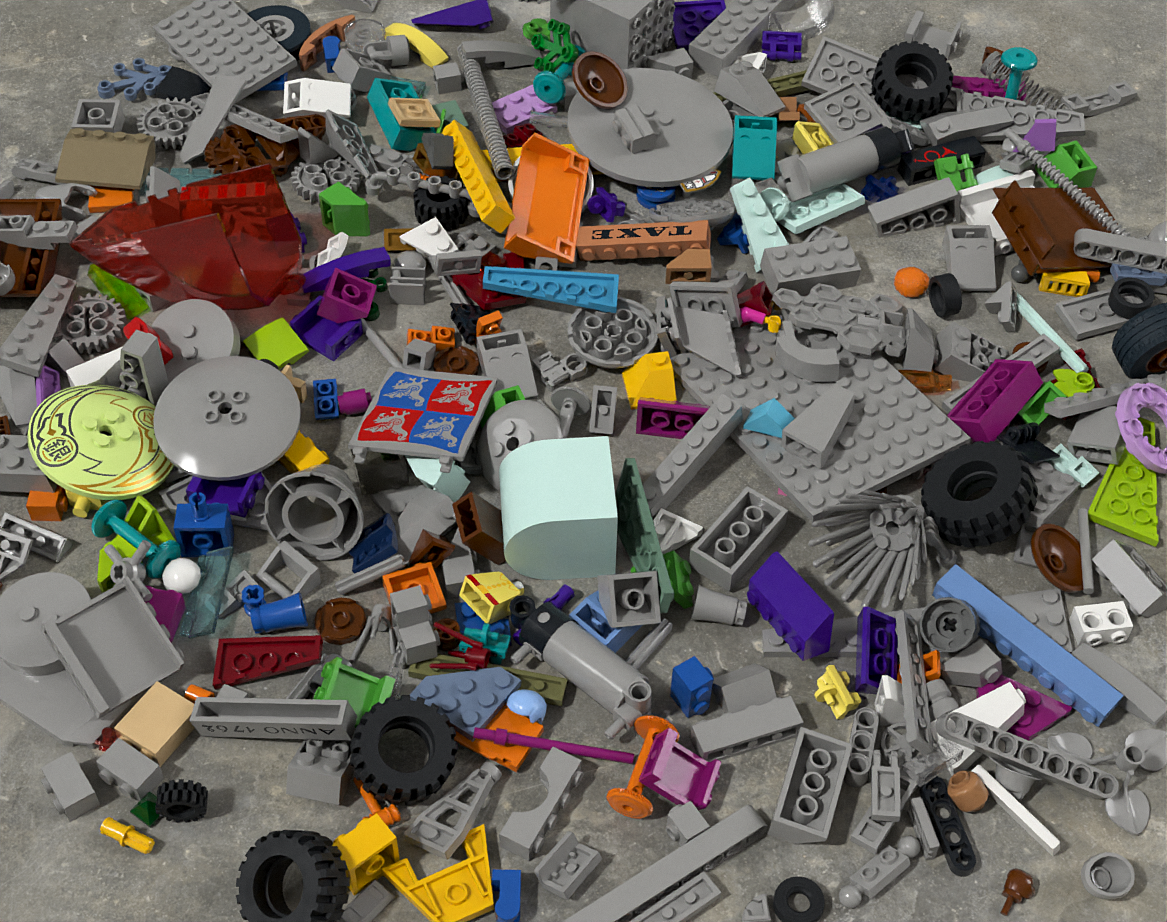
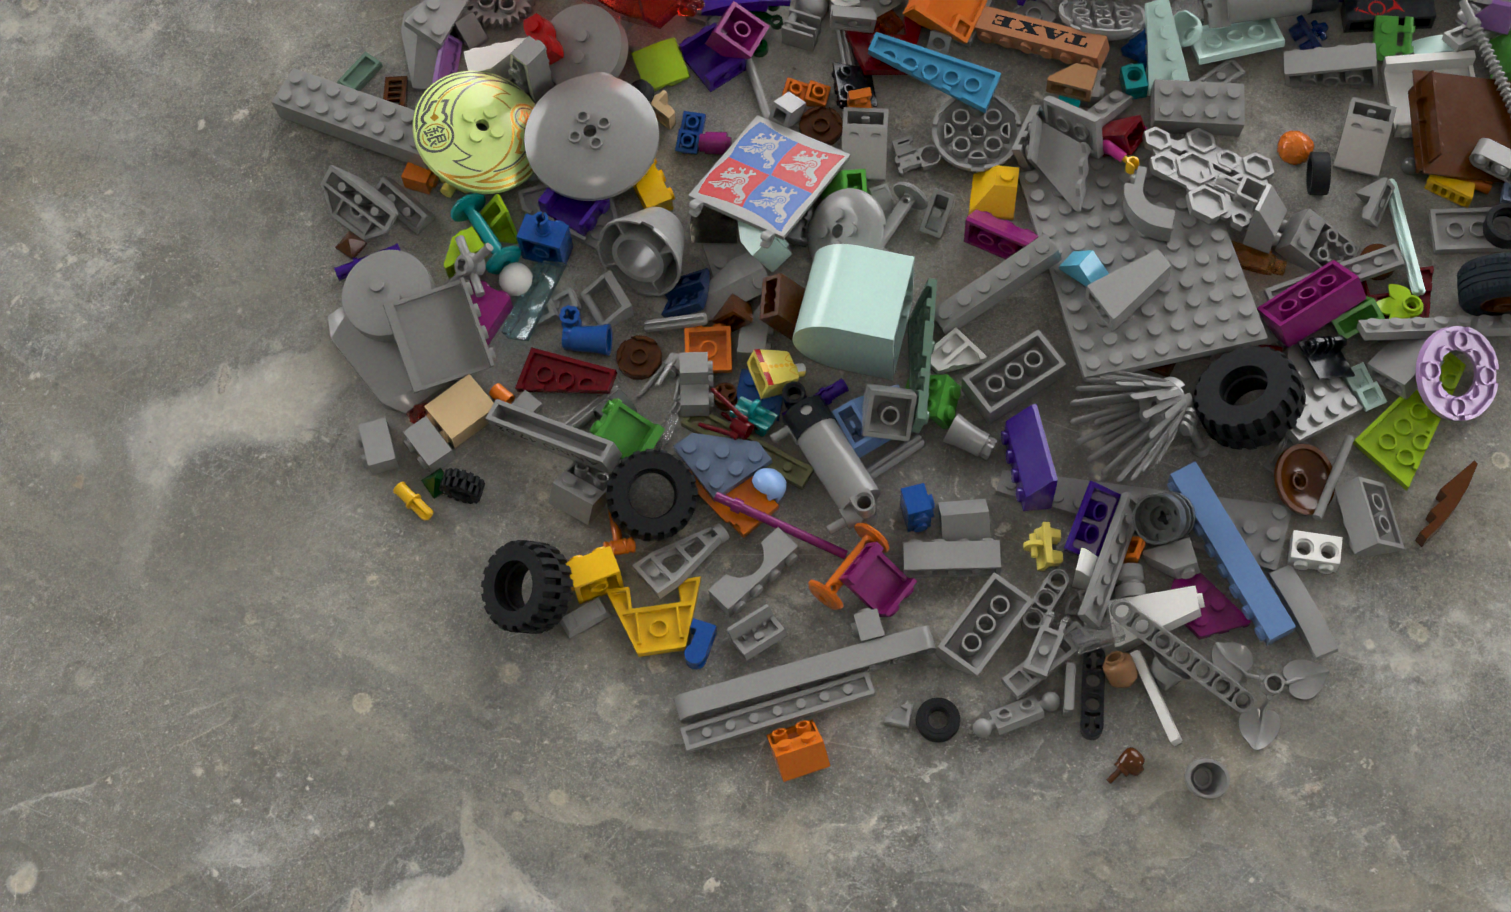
camera: 25 degrees right, 15 degrees up
(742, 259) = (1138, 88): none -> teal brick

